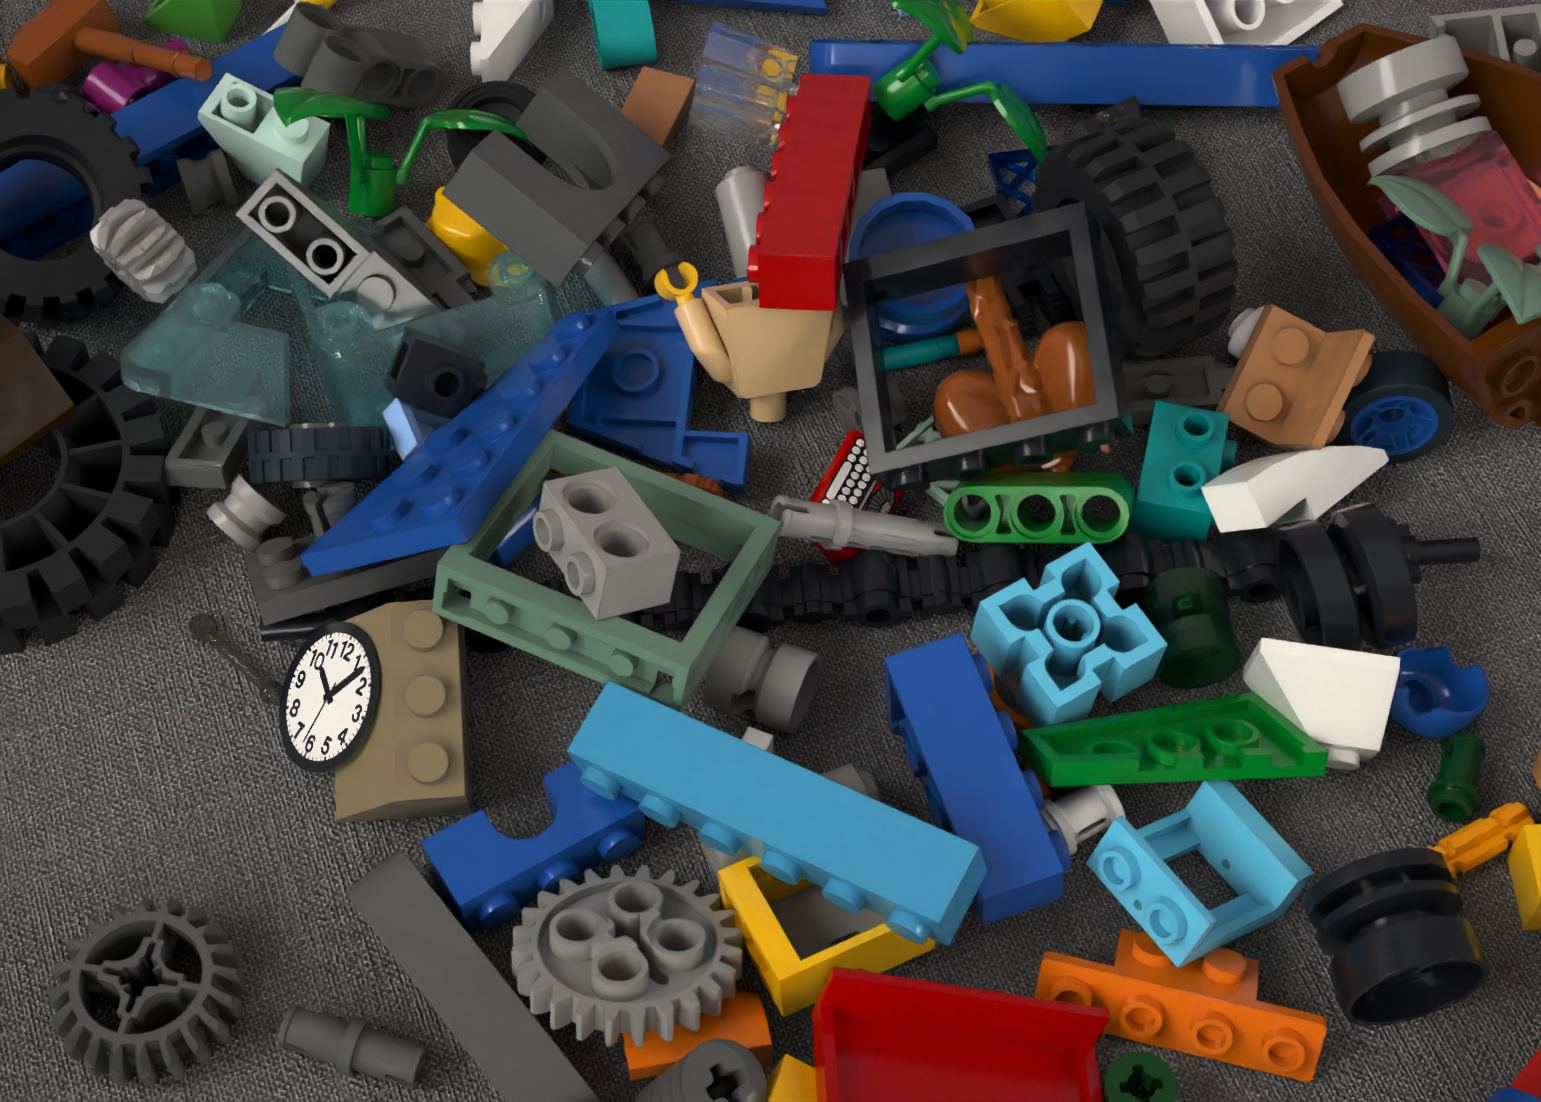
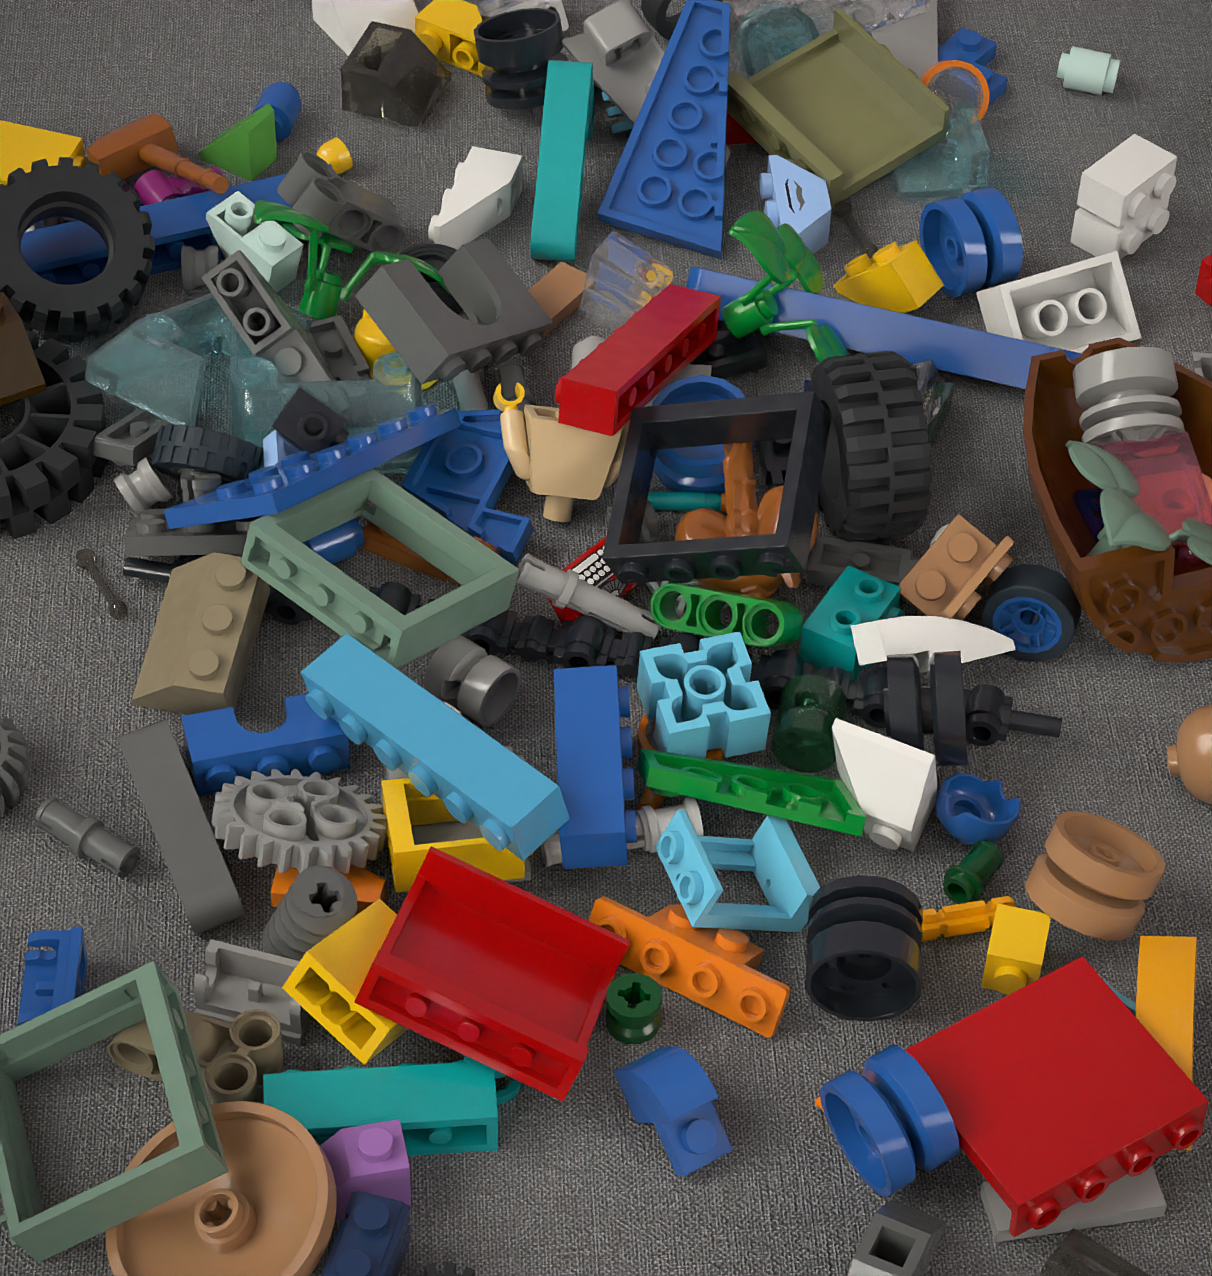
camera: 15 degrees right, 10 degrees down
(143, 250) = (127, 287): light grey gear -> none
(329, 697) = (154, 614): sticker -> none
(606, 542) = (374, 537): light grey brick -> none

